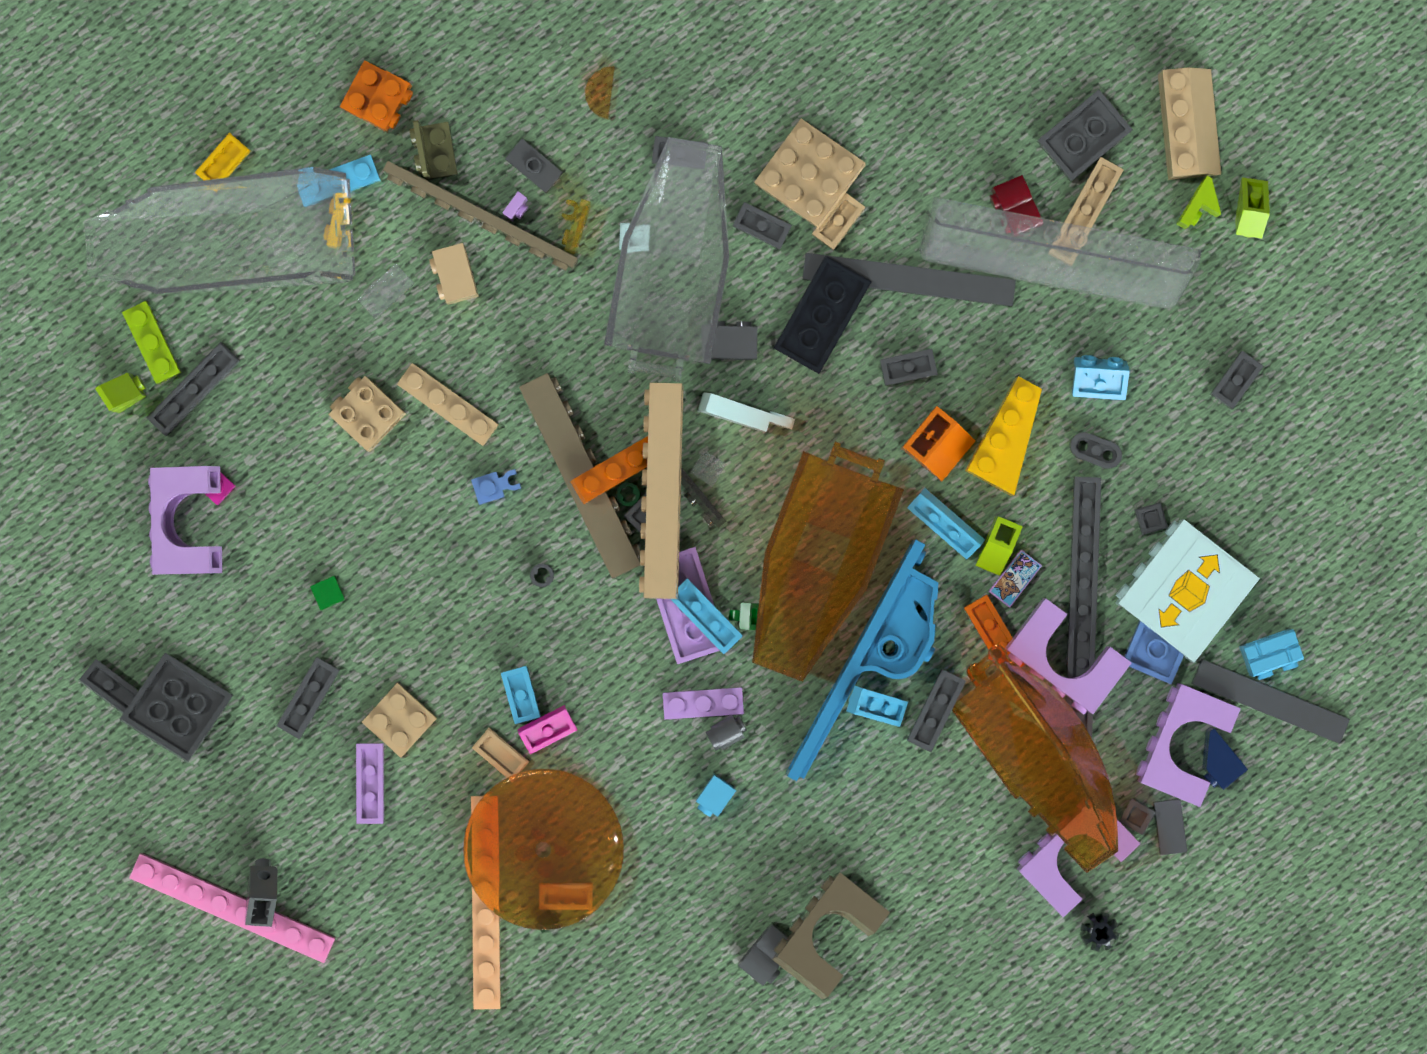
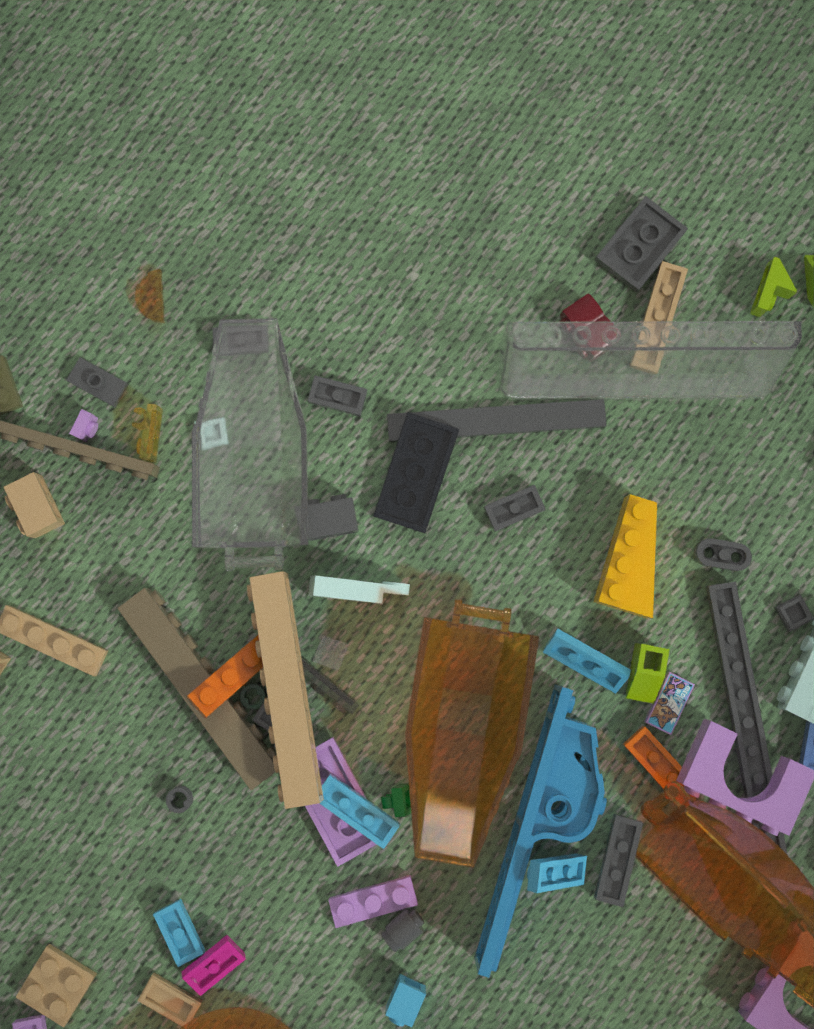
camera: 10 degrees left, 5 degrees down
(491, 487) = (111, 716): medium blue plate -> none
(810, 173) = (375, 334): tan plate -> none
(839, 221) = (413, 375): tan plate -> none
(938, 443) = (561, 579): orange slope -> none
(1100, 377) = (711, 480): medium azure bracket -> none
(1189, 123) = (739, 212): tan slope -> none

